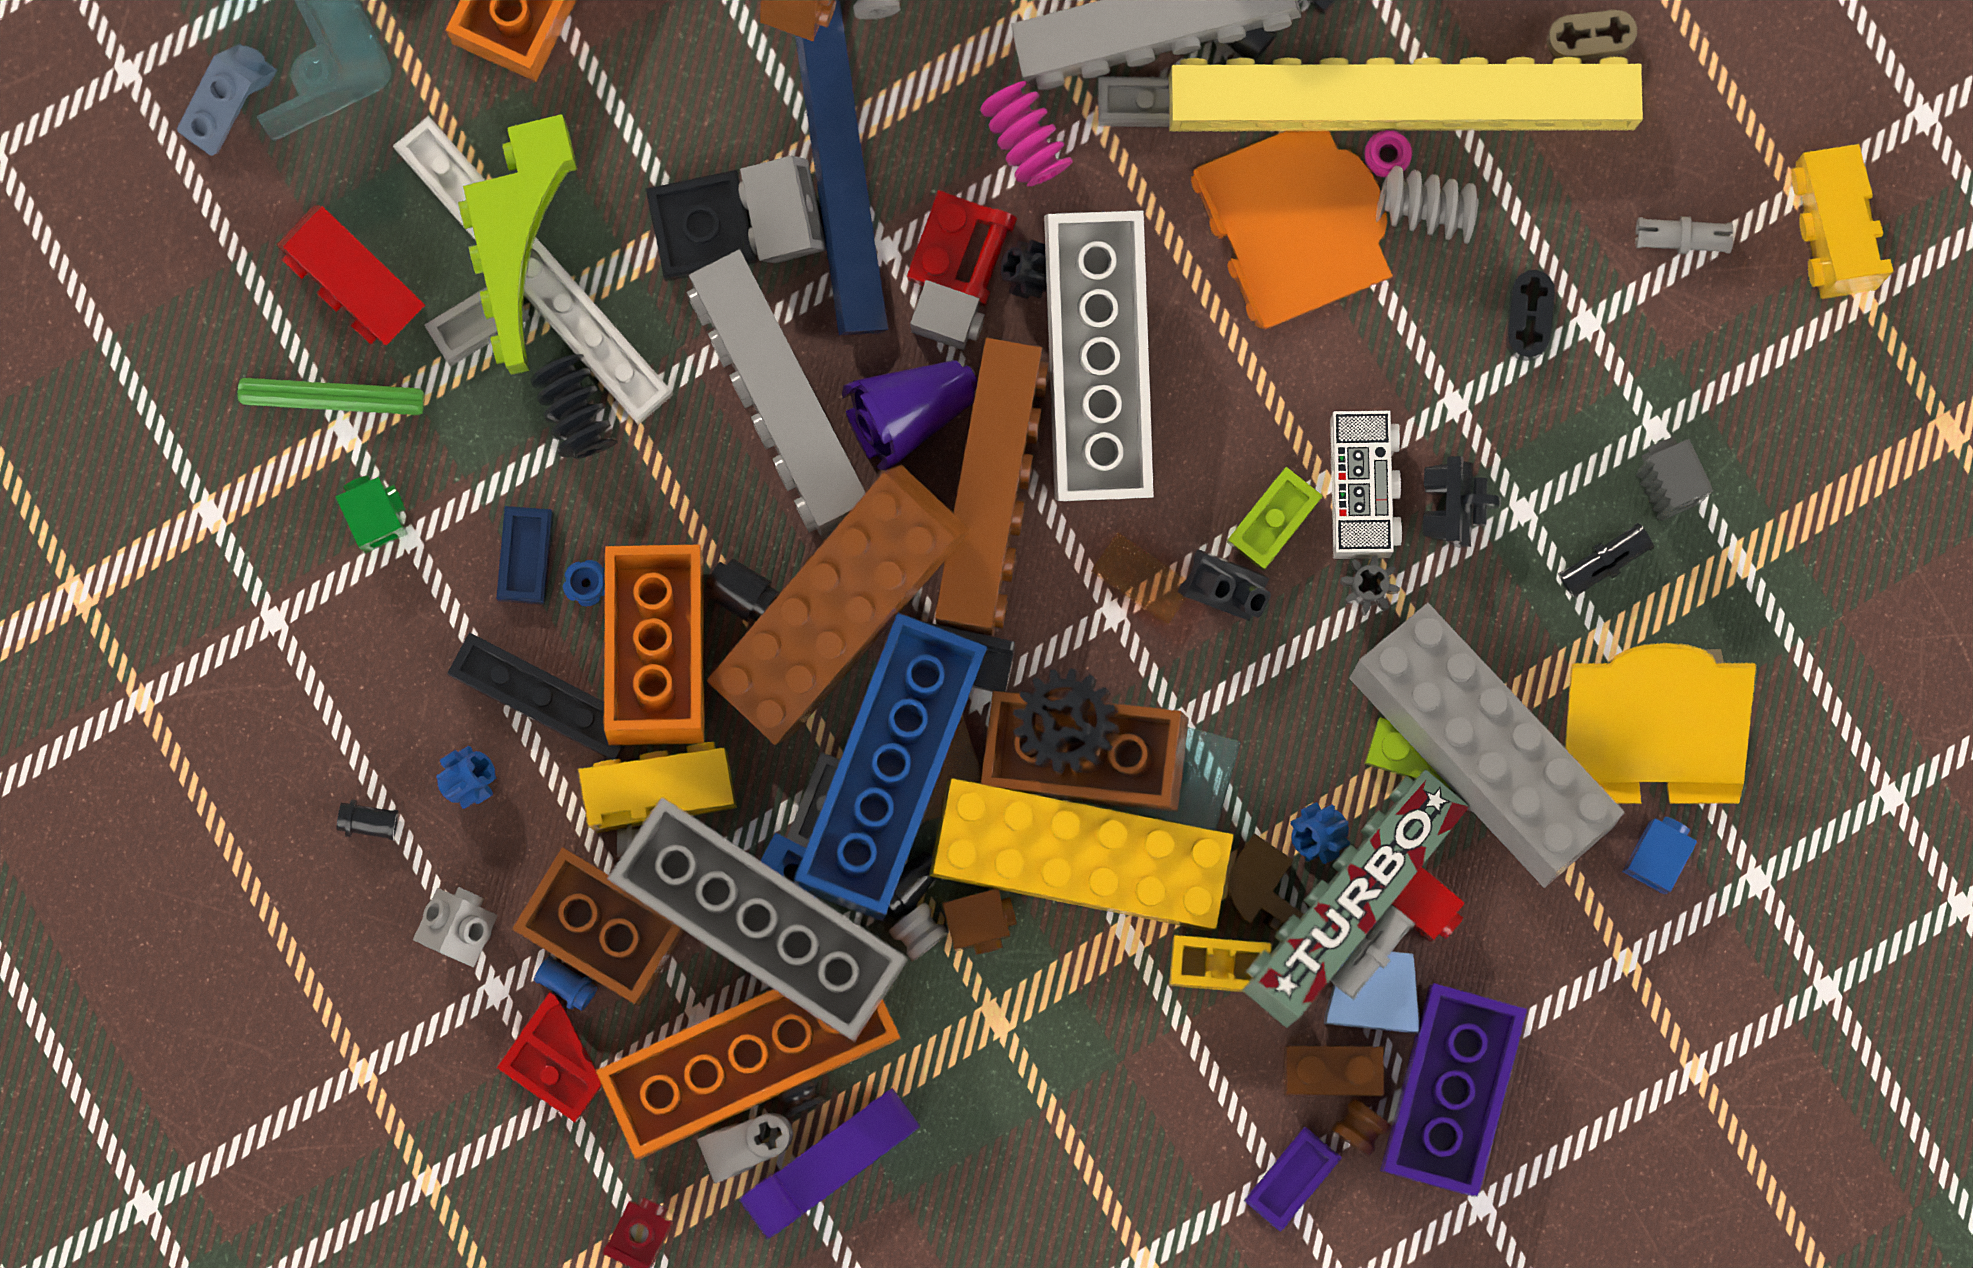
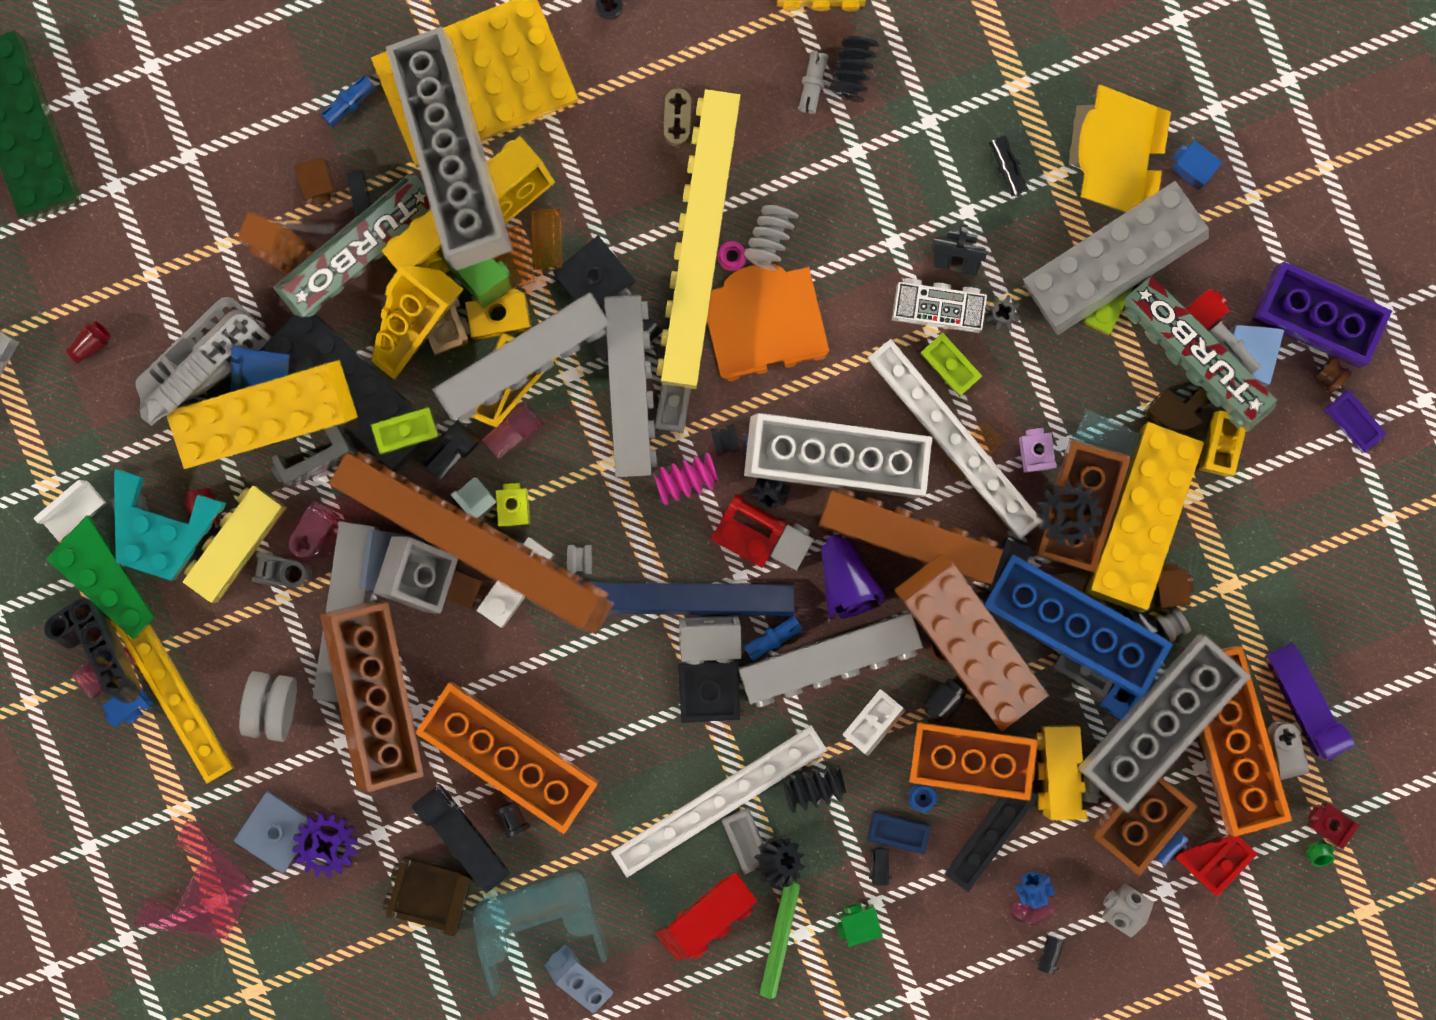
camera: 90 degrees left, 5 degrees up
(424, 781) = (1030, 916): none -> clear pink arm
(433, 376) = (779, 862): none -> black gear
(466, 532) = (880, 866): none -> black pin
(505, 224) = (692, 815): lime arch -> none
(590, 1225) = (1320, 853): none -> green plate
(690, 486) = (874, 722): none -> white hinge
(799, 311) = (773, 638): none -> blue pin
(801, 1098) = (1267, 711): black bush -> none
(1097, 186) = (725, 439): none -> black wheel
(1148, 689) = (1032, 461): none -> lavender brick
(1159, 538) = (954, 439): none -> white tile
(1226, 586) = (991, 400): black hips -> none
(1320, 833) = (1151, 369): blue gear -> none
(1333, 1071) = (1297, 385): reddish brown brick -> none
(1541, 316) = (848, 178): black beam -> none
(1673, 478) = (969, 115): dark grey brick -> none
(1718, 290) = (852, 67): none -> black piece

